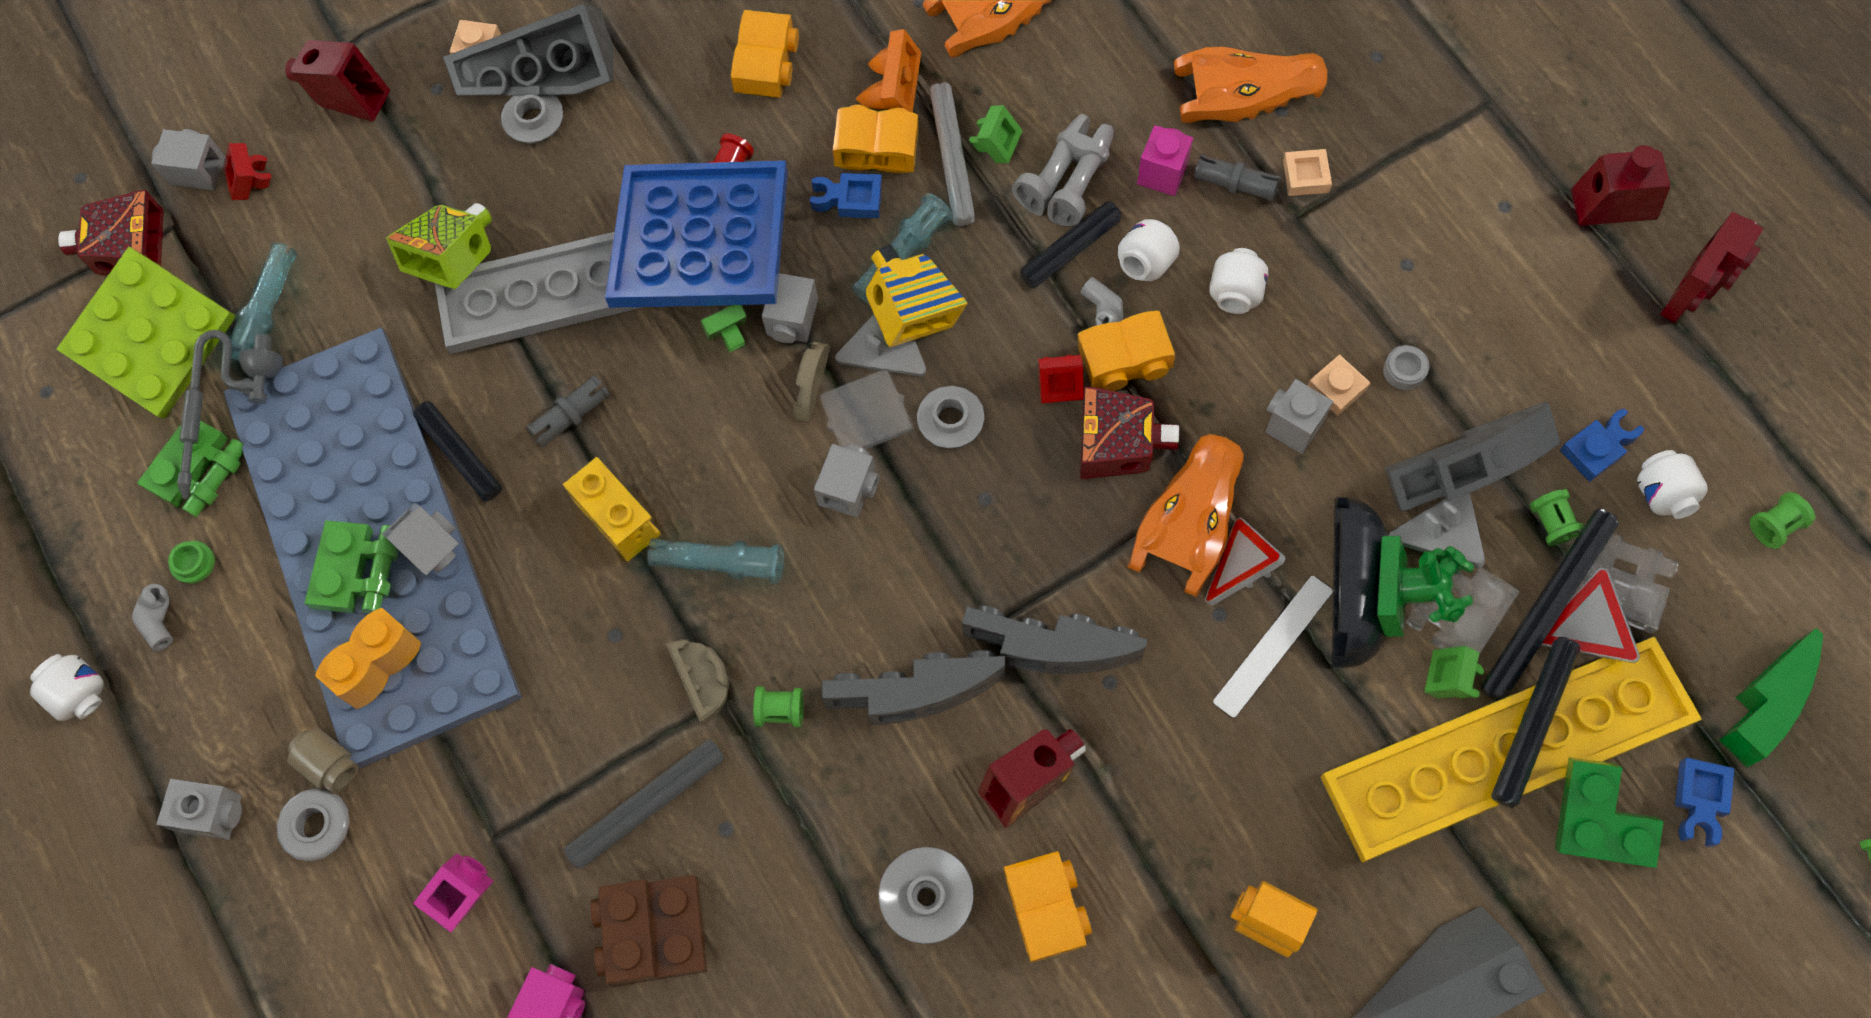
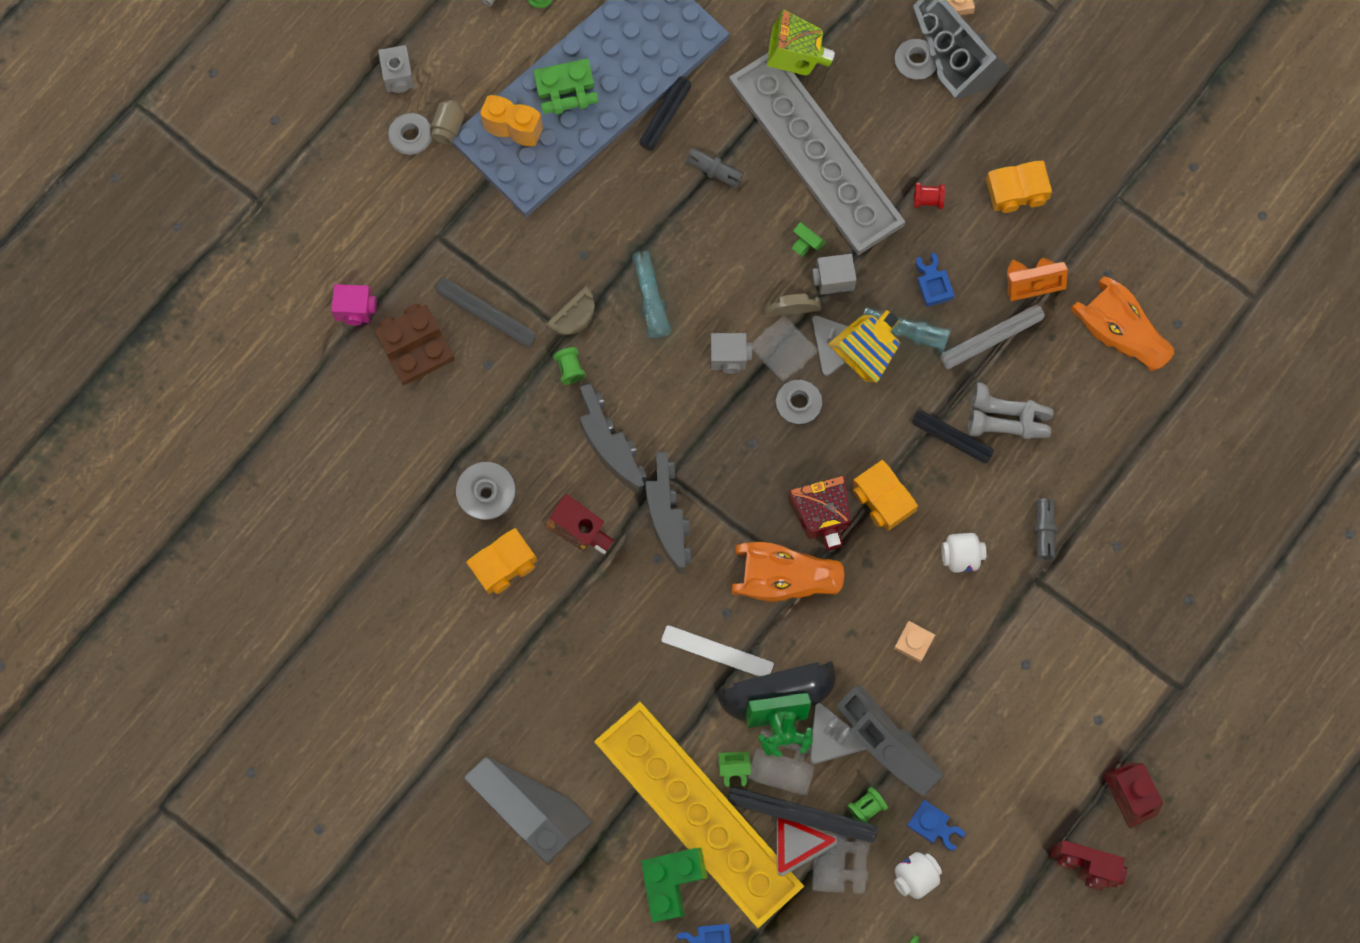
camera: 65 degrees right, 5 degrees up
(423, 538) = (593, 118): light grey brick -> none
(454, 891) = (396, 226): dark pink brick -> none
(611, 509) = (657, 220): yellow hinge -> none
(698, 234) = (860, 196): blue plate -> none
(875, 139) = (981, 283): light orange brick -> none
(997, 134) = (1016, 361): bright green tile -> none
(1061, 379) = (849, 459): red tile -> none
(1107, 302) = (916, 475): light grey arm -> none
(1148, 250) = (964, 486): white head -> none
(1164, 160) = (1038, 476): dark pink brick -> none
(1242, 83) = (1125, 512): orange animal -> none
(1242, 562) = (762, 614): piece -> none
(1273, 918) = (536, 692): light orange brick -> none
(1297, 415) = (877, 618): light grey brick -> none
(1307, 172) = (1068, 575): light nougat plate -> none
(1406, 367) = (944, 683): light grey tile -> none
(1535, 722) = (717, 821): black axle -> none

